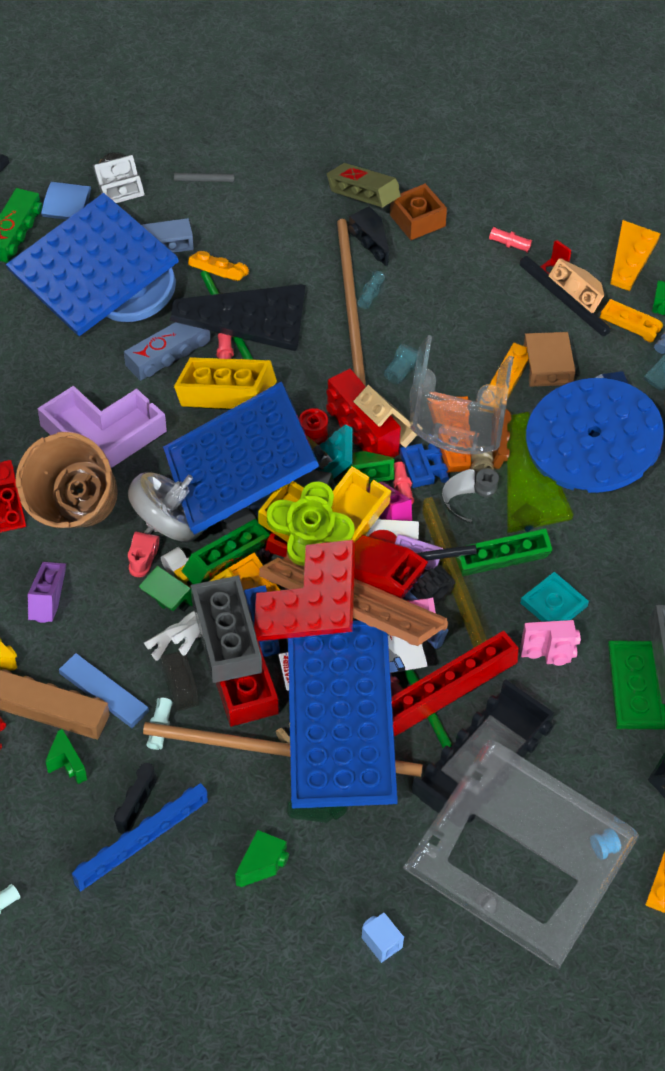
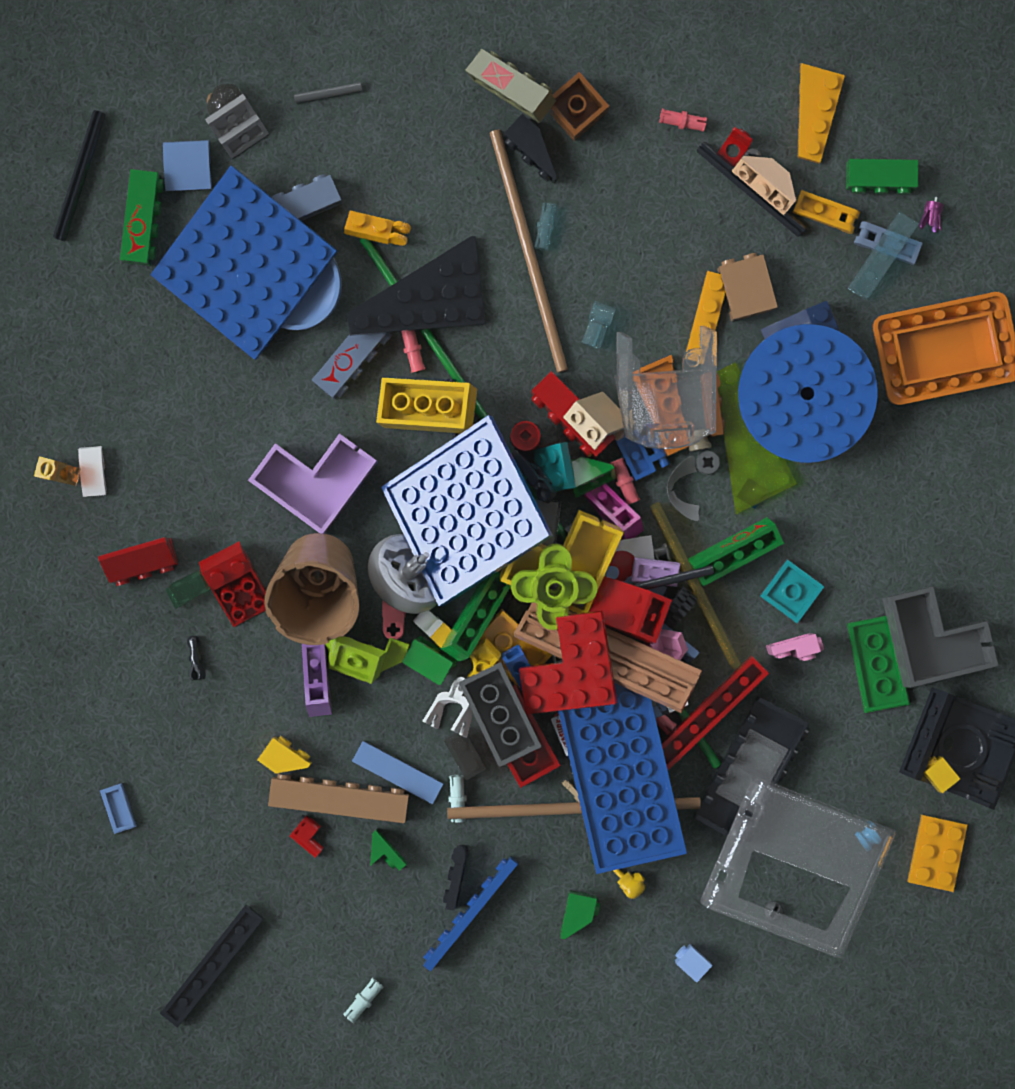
camera: 10 degrees left, 35 degrees up
(98, 573) = (364, 660): none -> lime piece
(327, 843) = (631, 884): none -> yellow piece

